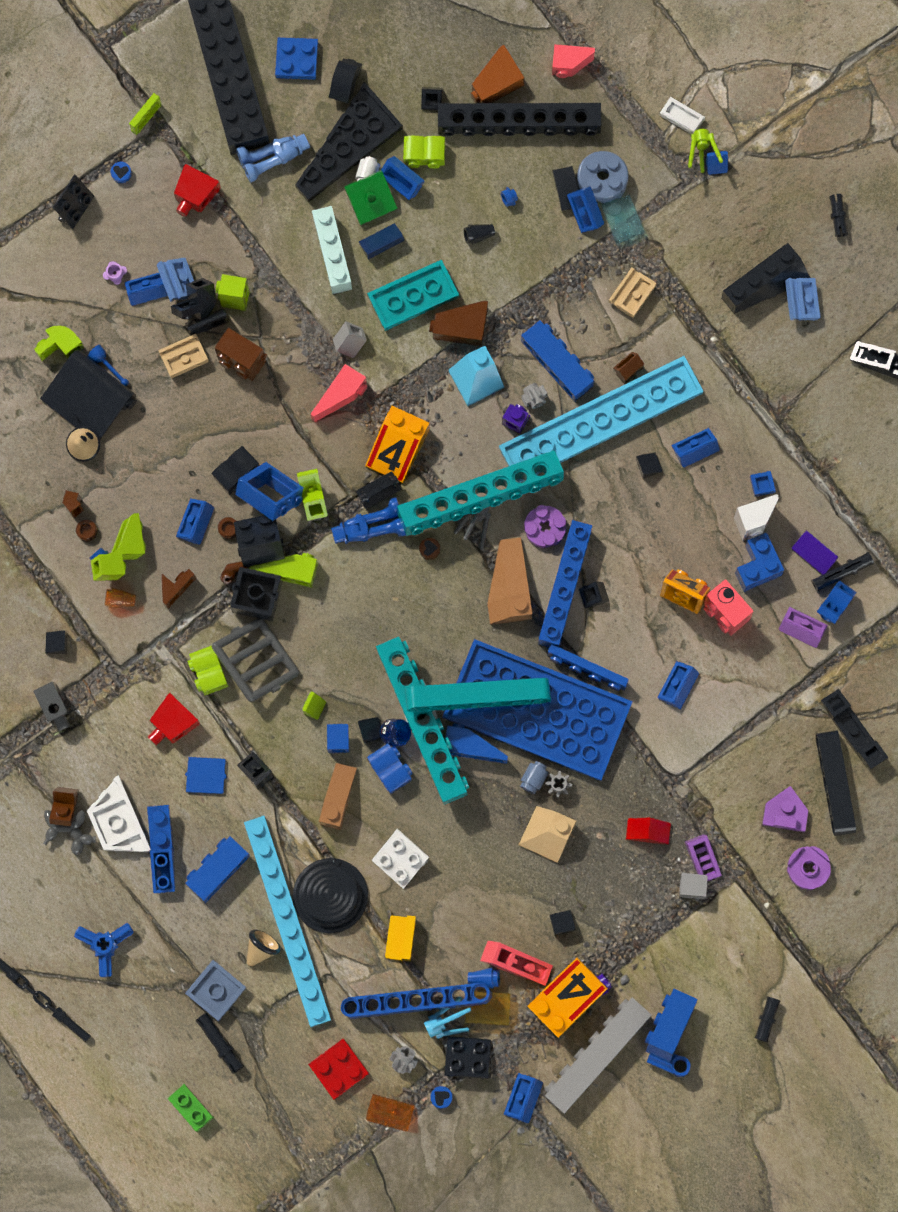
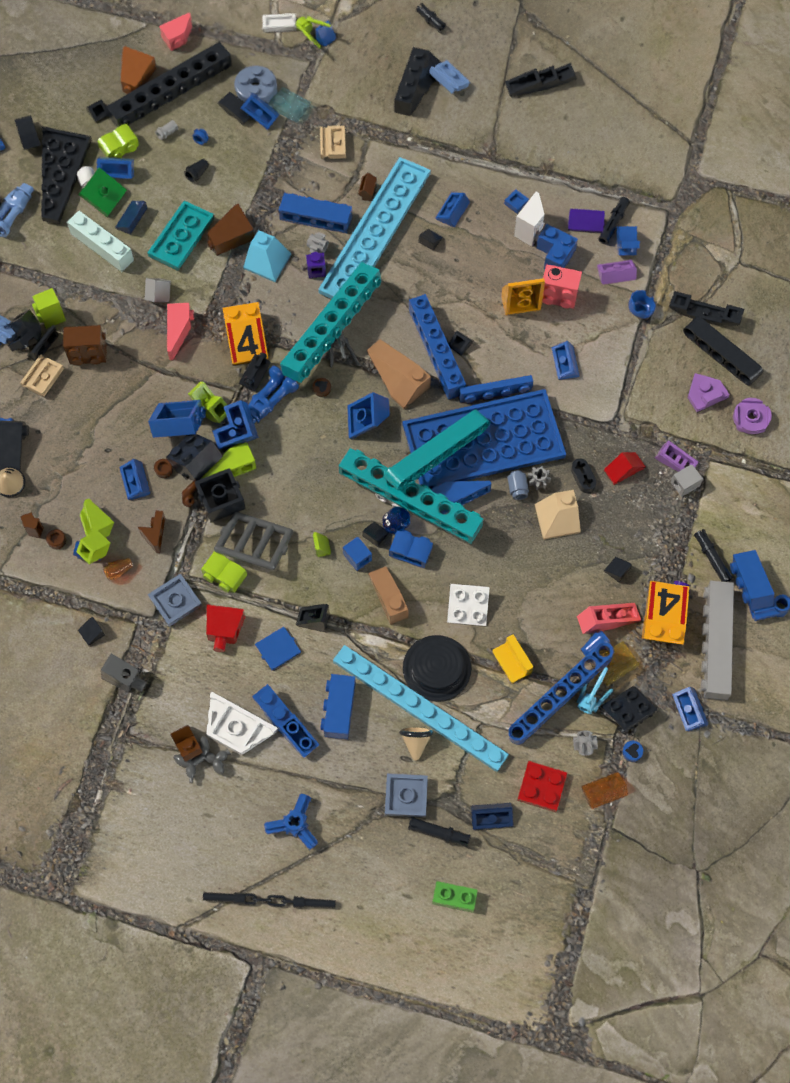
camera: 40 degrees left, 10 degrees down
(147, 665) = (174, 600): none -> sand blue plate
(233, 468) = (137, 427): black brick -> none
(276, 1062) = (492, 816): none -> dark blue slope
(322, 538) = (240, 427): none -> blue brick
(448, 609) = (367, 414): none -> blue slope
(481, 167) = (163, 132): none -> light grey pin
(548, 537) = (394, 312): medium lavender plate -> none
(598, 809) = (587, 473): none -> black beam
(658, 975) = (711, 553): none -> black pin
(795, 680) = (641, 305): none -> blue hair

